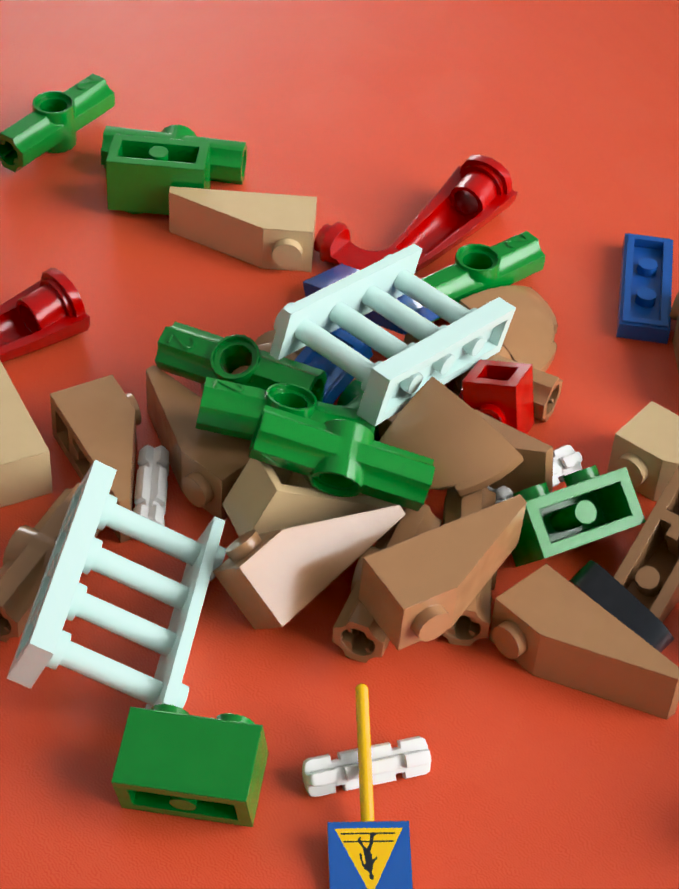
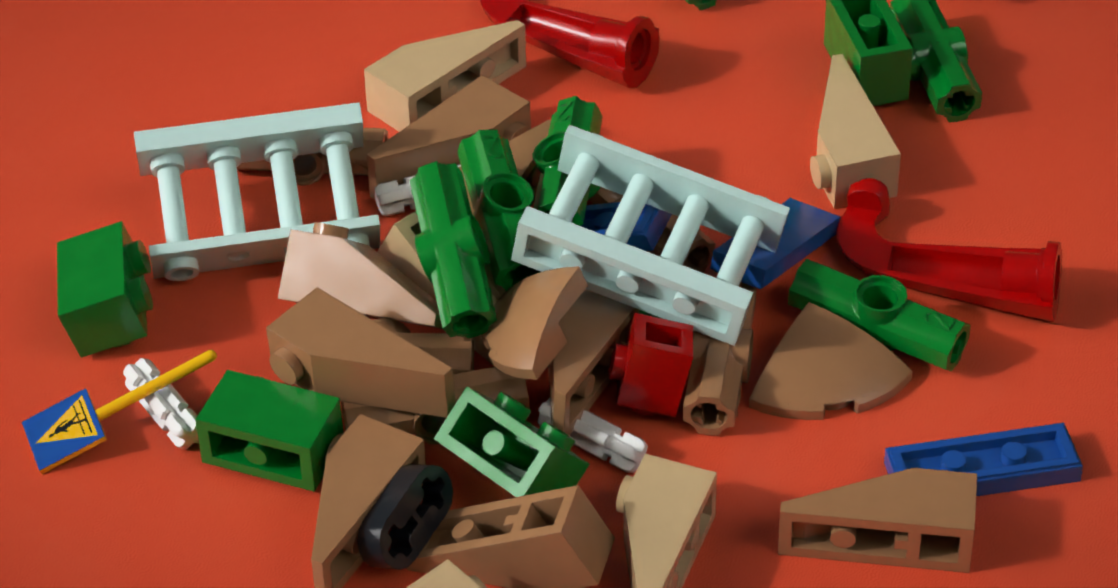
camera: 75 degrees right, 0 degrees up
(470, 677) = (268, 429): none -> green brick

